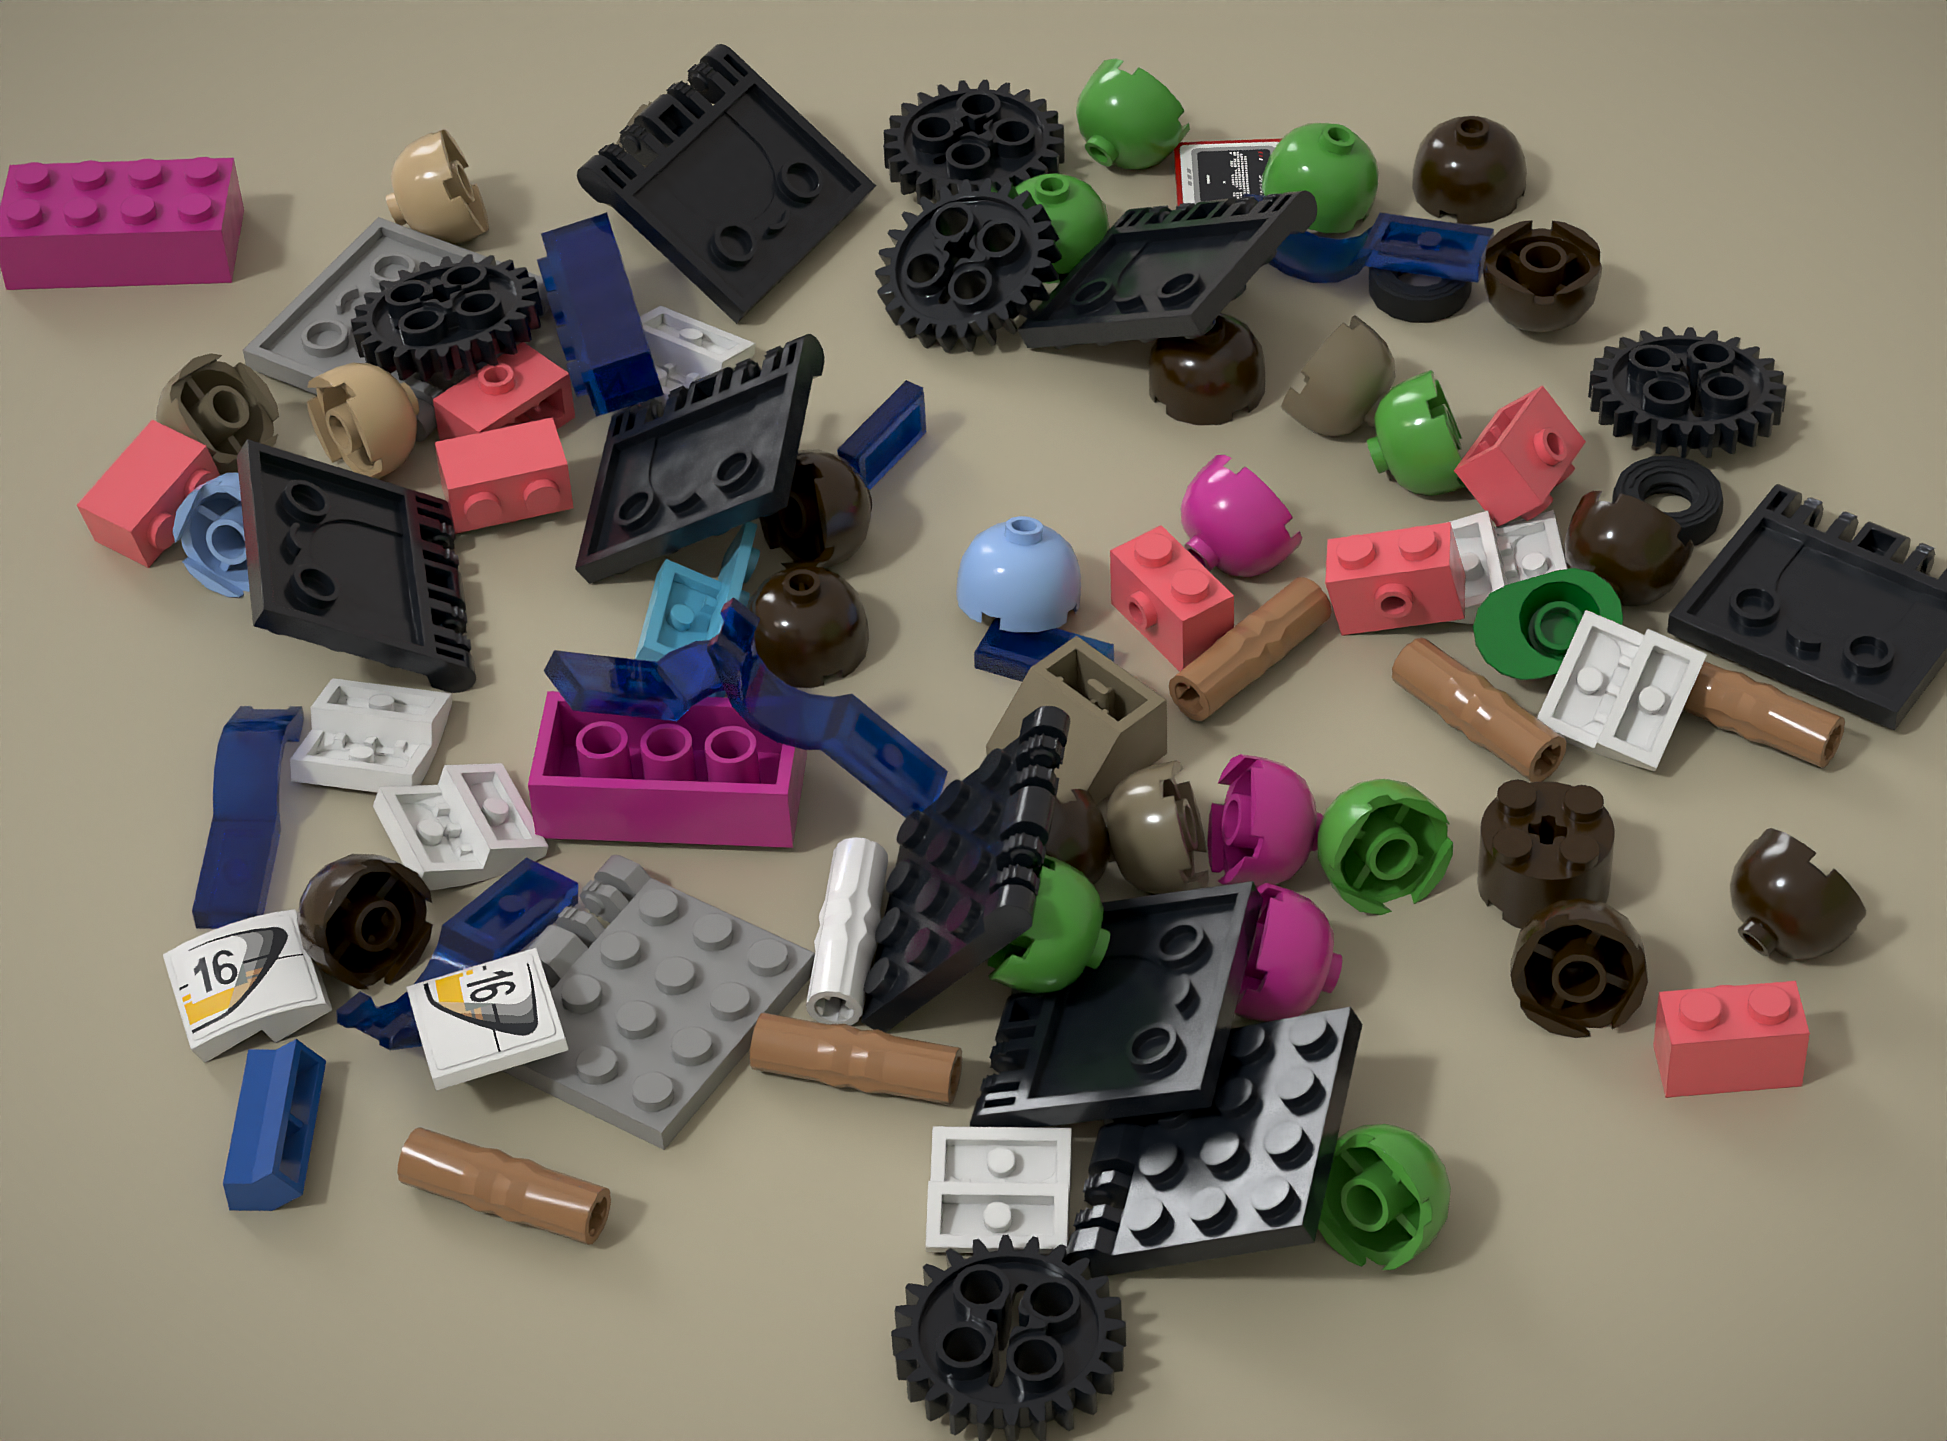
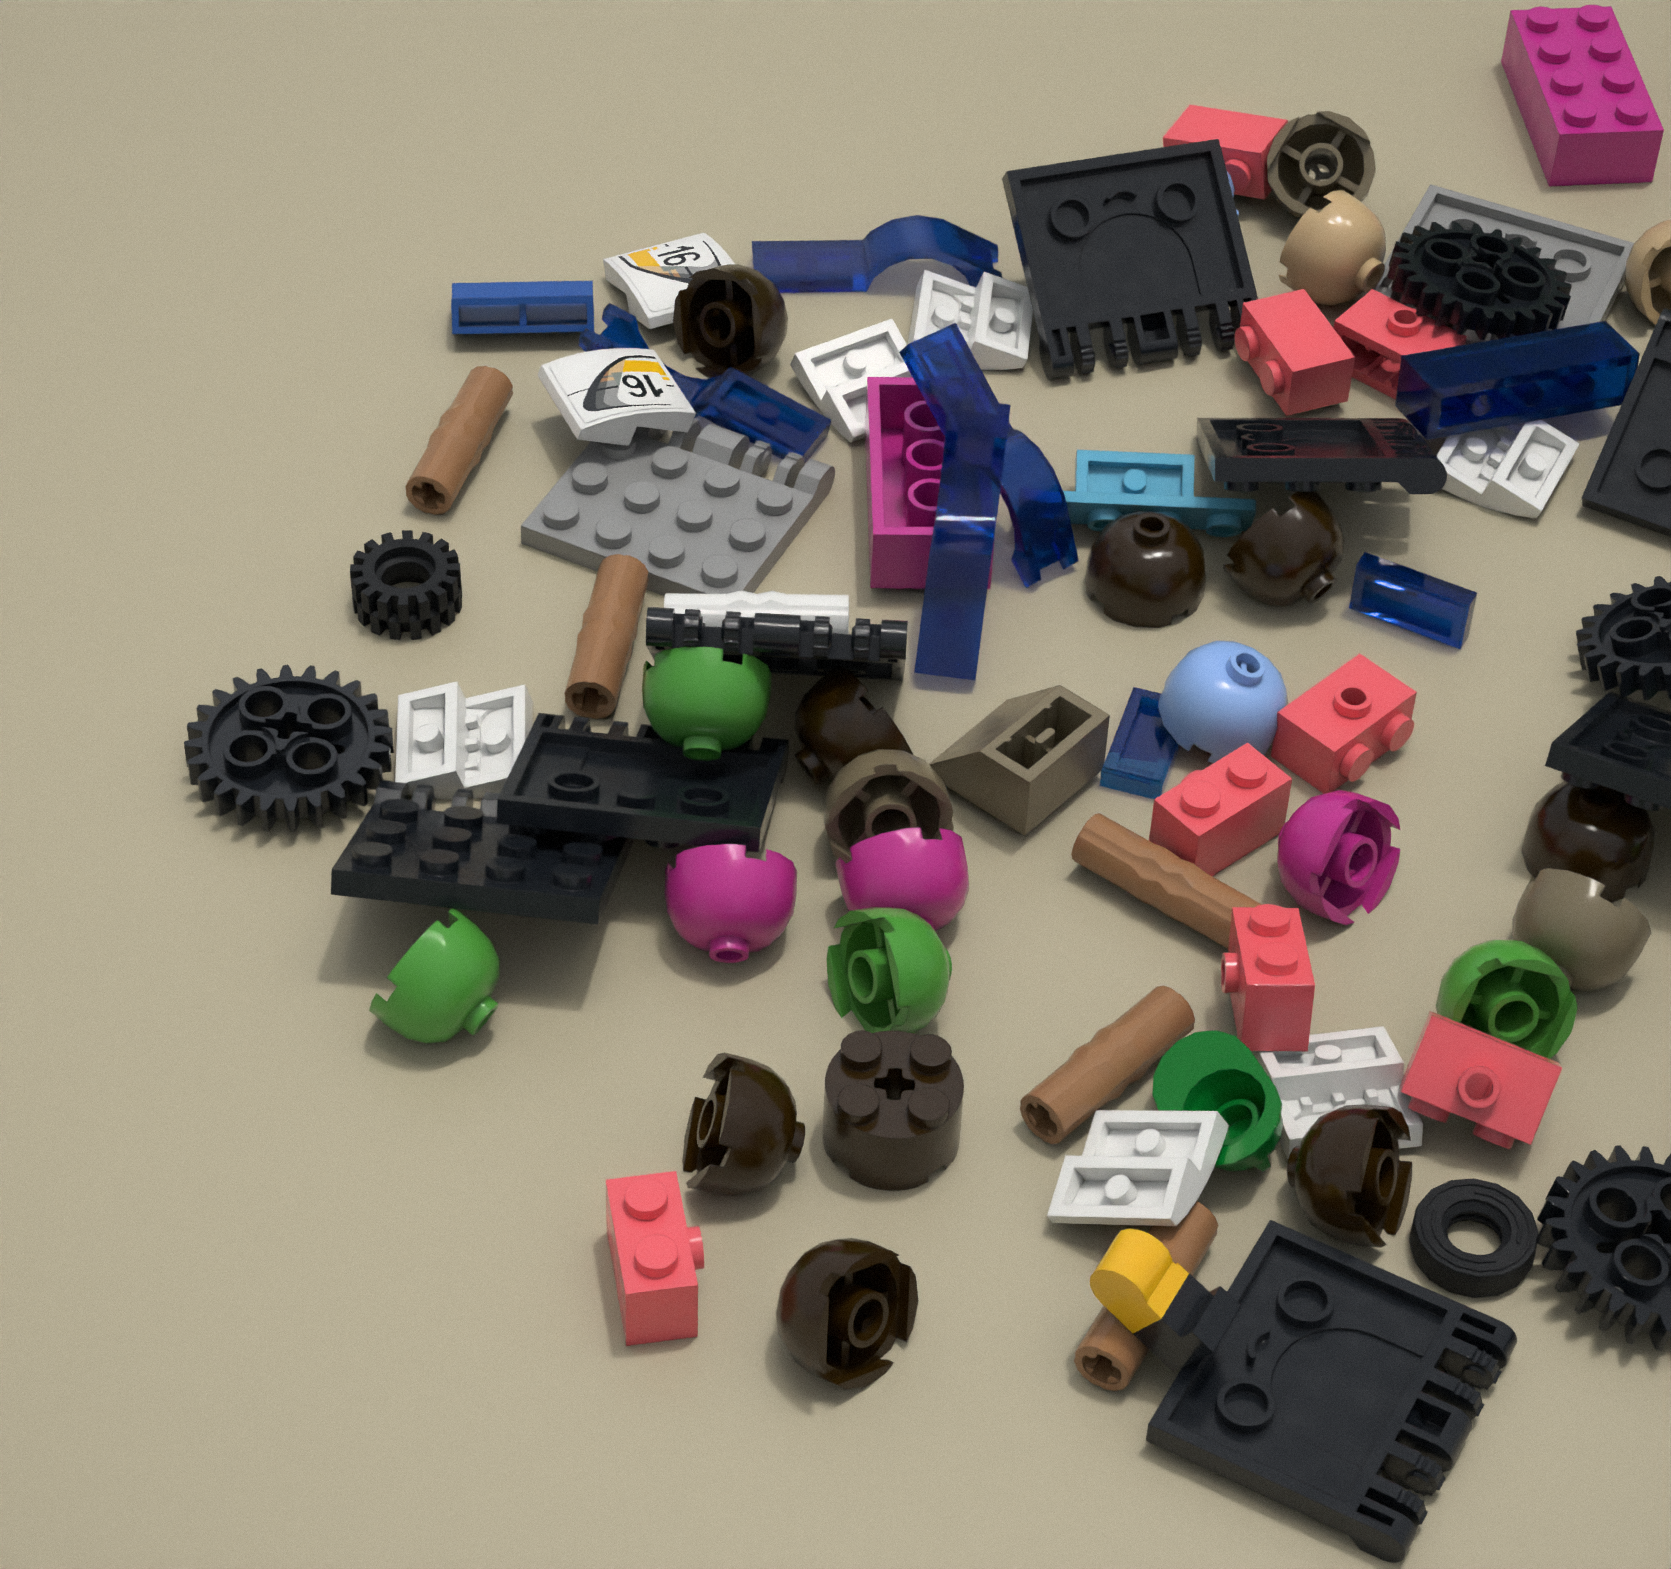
camera: 80 degrees right, 0 degrees up
(742, 1206) = (411, 607): none -> black tyre
(1050, 488) = (1344, 724): none -> coral brick
(1801, 666) = (1161, 1300): none -> leg

